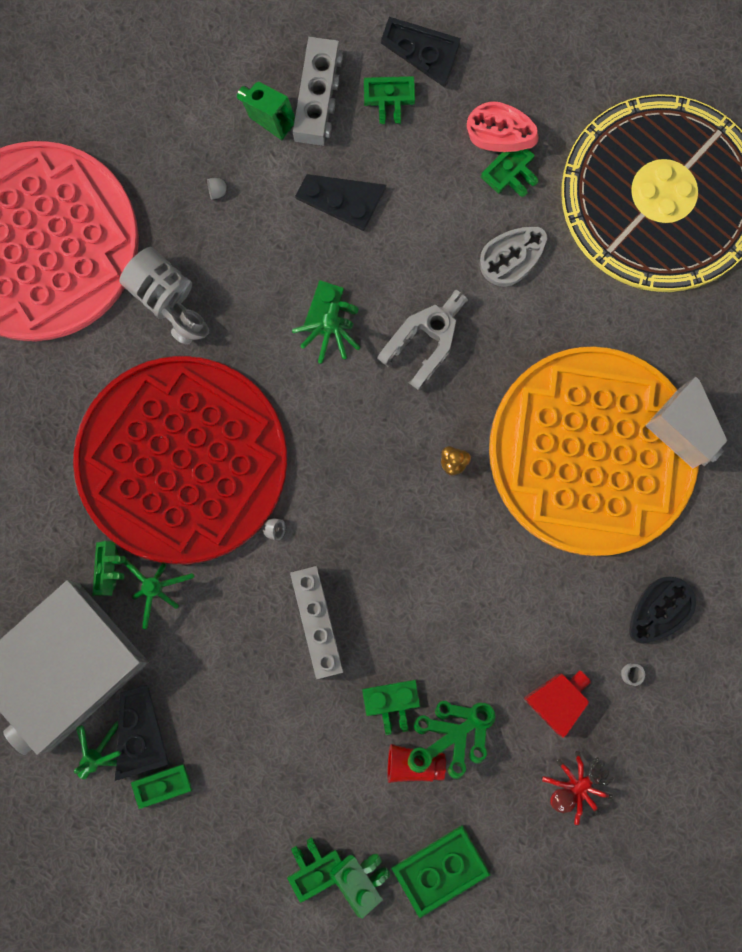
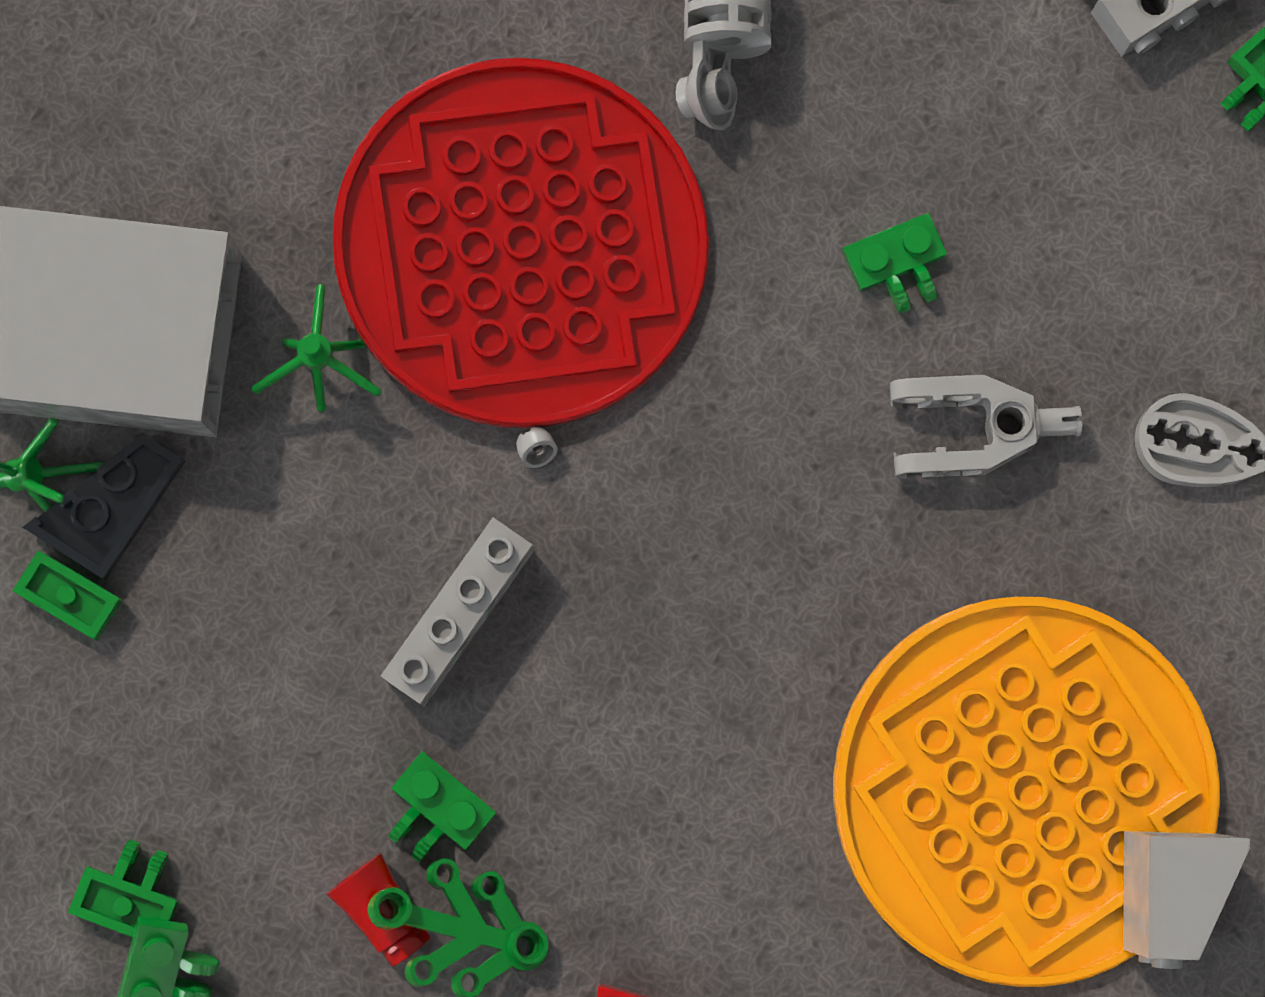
camera: 45 degrees right, 0 degrees up
(104, 575) = (277, 280): green hinge -> none
(330, 324) = (877, 278): green plant -> none
(341, 198) = (1069, 145): black wing -> none
(454, 460) = (841, 608): pearl gold piece -> none

